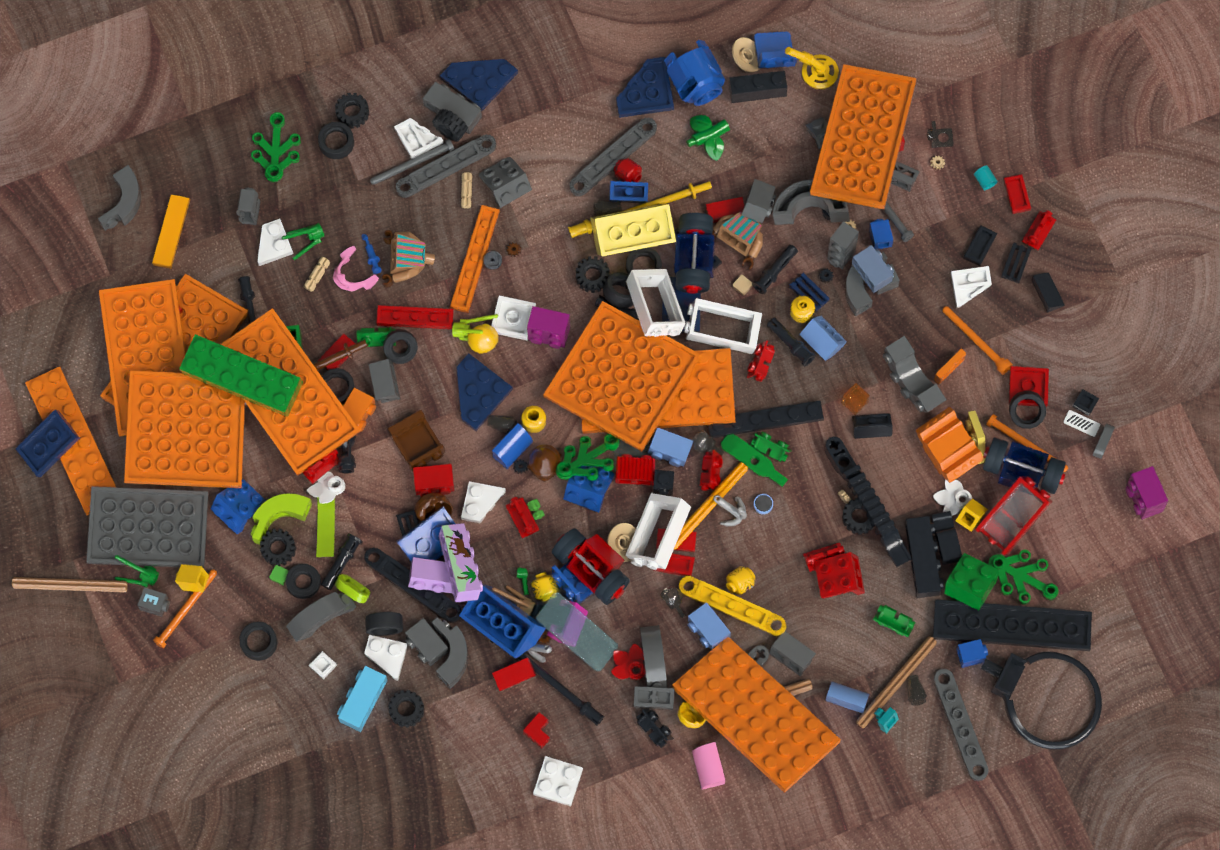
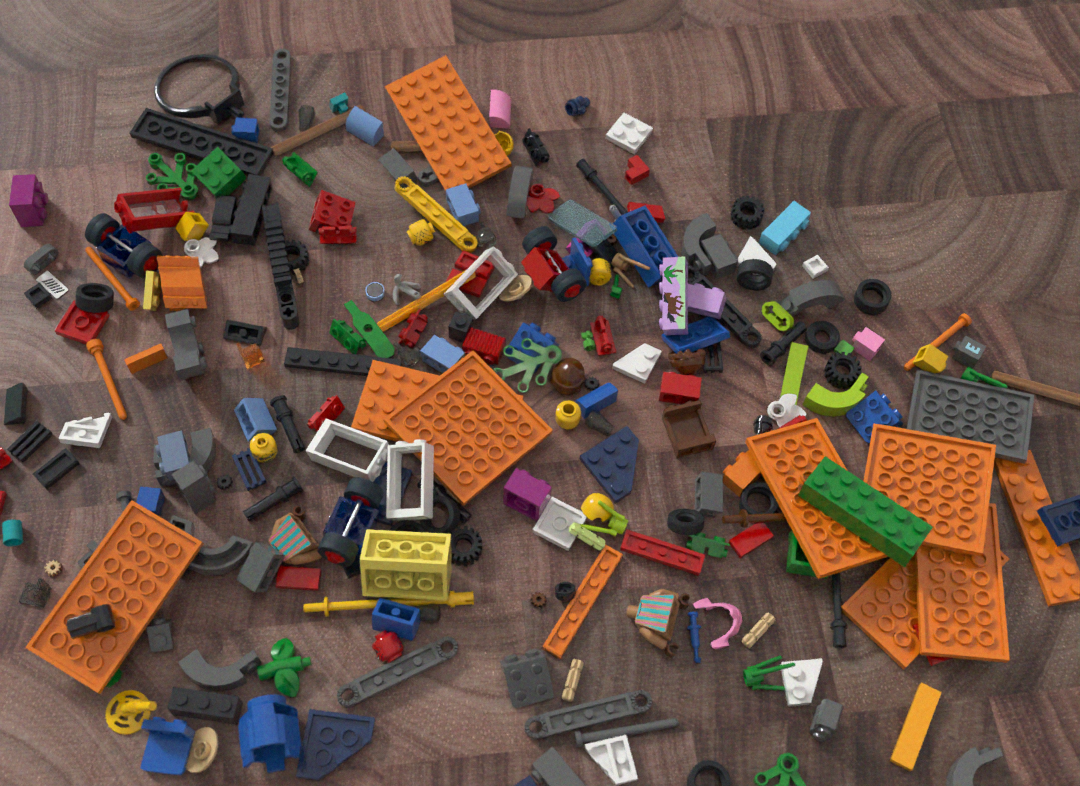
camera: 170 degrees left, 10 degrees down
(257, 582) = (867, 343): none -> bright pink brick
(449, 125) = (573, 756): black tyre -> none
(485, 309) = (587, 536): none -> yellowish green axle
(624, 798) = (577, 106): none -> dark blue piece
(654, 698) = (530, 159): dark grey hinge -> none
(742, 285) = (313, 496): tan piece -> none
(760, 110) = (218, 678): none -> dark grey arch
(865, 107) = (98, 620): none -> black piece

